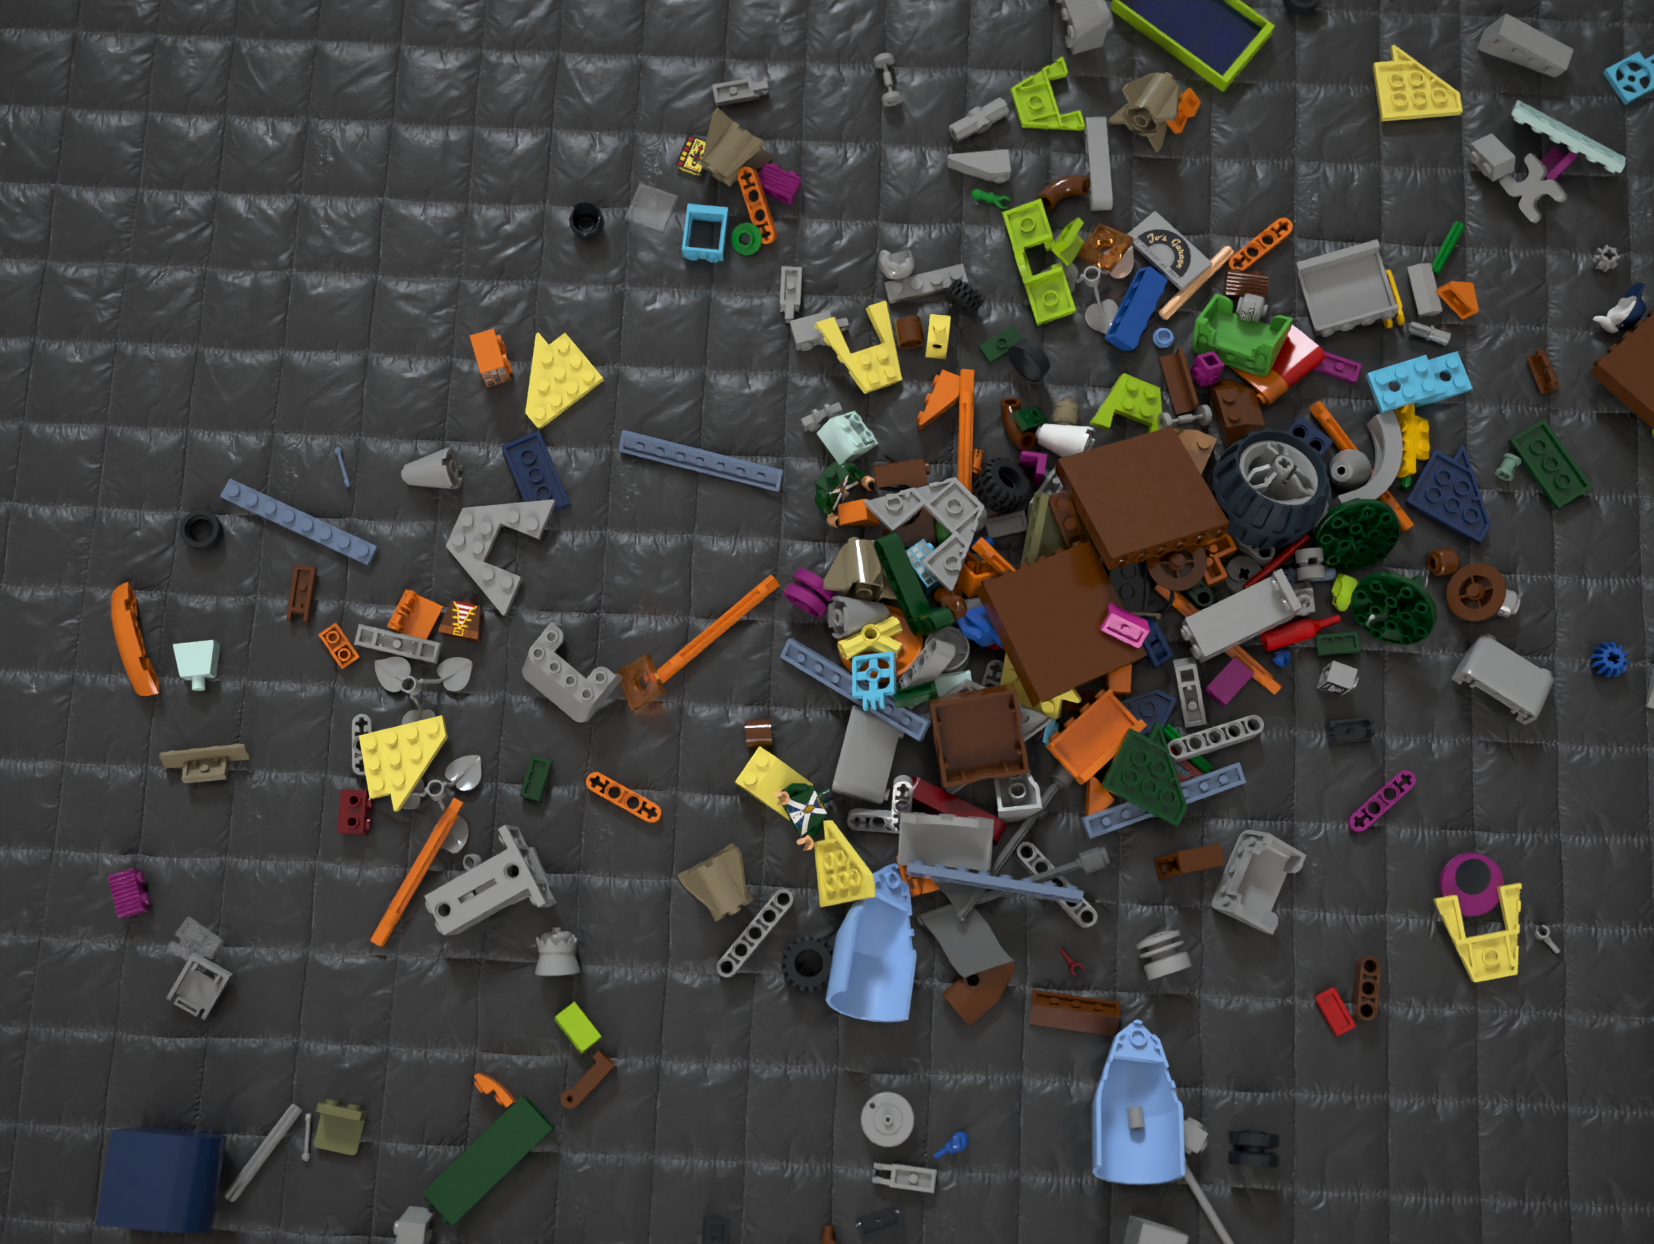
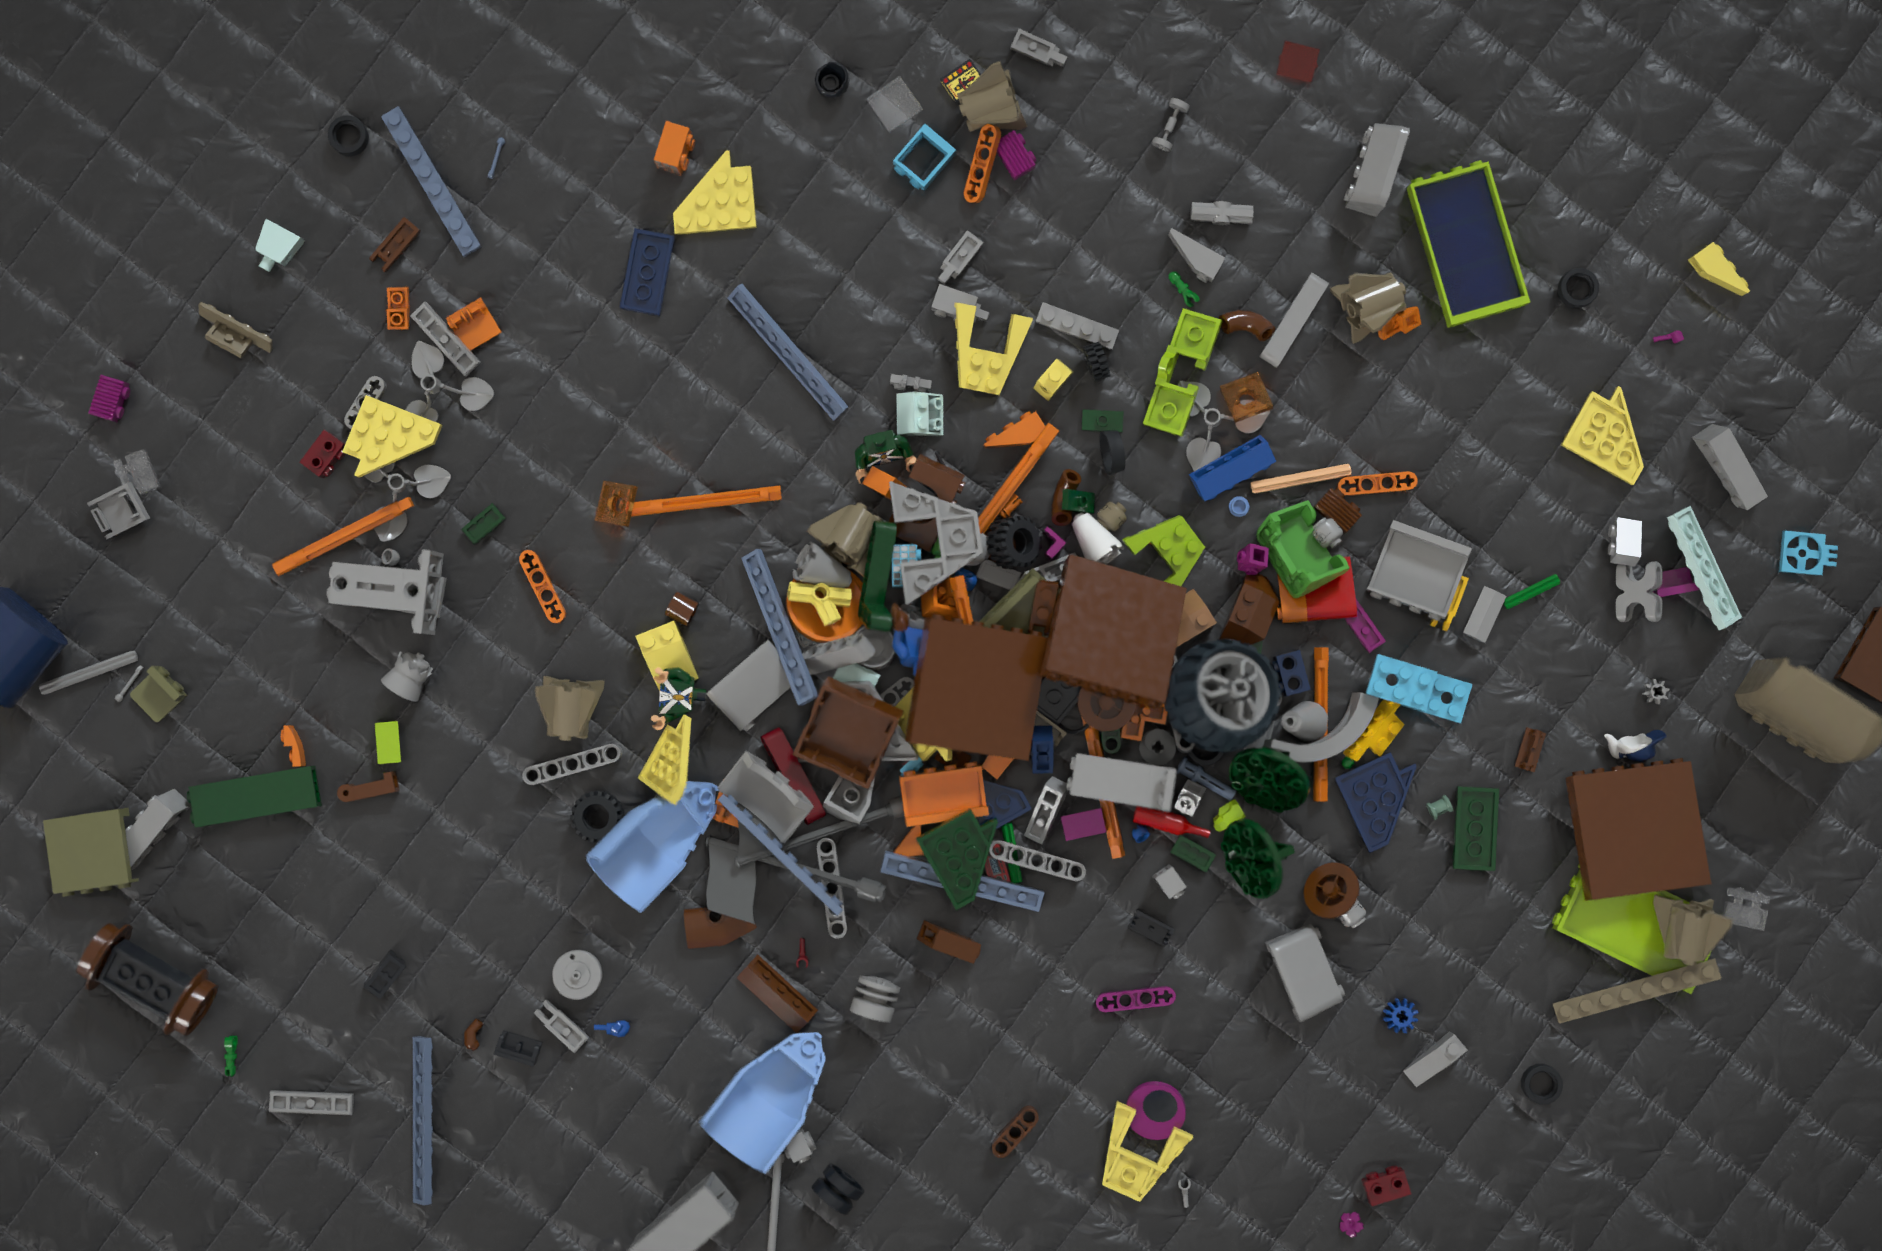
camera: 35 degrees right, 10 degrees up
(131, 642) = (234, 192): orange brick -> none
(435, 470) = (567, 214): light grey cone -> none
(463, 619) = (510, 355): torso -> none
(475, 537) = (564, 291): light grey wing -> none
(562, 682) = (552, 460): light grey windscreen -> none
(755, 242) = (963, 186): green piece -> none
(808, 593) = (796, 525): magenta wheel -> none
(873, 694) = (787, 644): medium azure piece -> none
(890, 817) = (739, 746): light grey beam -> none
(896, 265) = (1062, 294): light grey hair -> none
(909, 332) = (1032, 360): reddish brown piece -> none
(915, 694) = (820, 667): dark green plate -> none
(941, 591) = (915, 605): orange pin -> none
(1037, 104) = (1281, 231): lime wing -> none
(1069, 242) = (1217, 373): lime panel -> none
(1125, 626) = (1026, 726): dark pink panel -> none
(1135, 1118) = (766, 1104): light grey hinge -> none
(1169, 251) = (1296, 436): light grey tile -> none
(1178, 383) = (1222, 553): reddish brown panel -> none
(1203, 415) = (1223, 594): light grey wheel -> none
(1255, 879) = (989, 991): light grey windscreen -> none
(1277, 561) = (1187, 756): red bar -> none
(1313, 571) = (1209, 782): light grey wheel -> none
(1334, 1011) = (979, 1131): red tile -> none
(1429, 333) = (1460, 653): light grey axle -> none
(1443, 561) = (1327, 847): reddish brown head -> none
(1460, 298) = (1508, 642): orange slope -> none

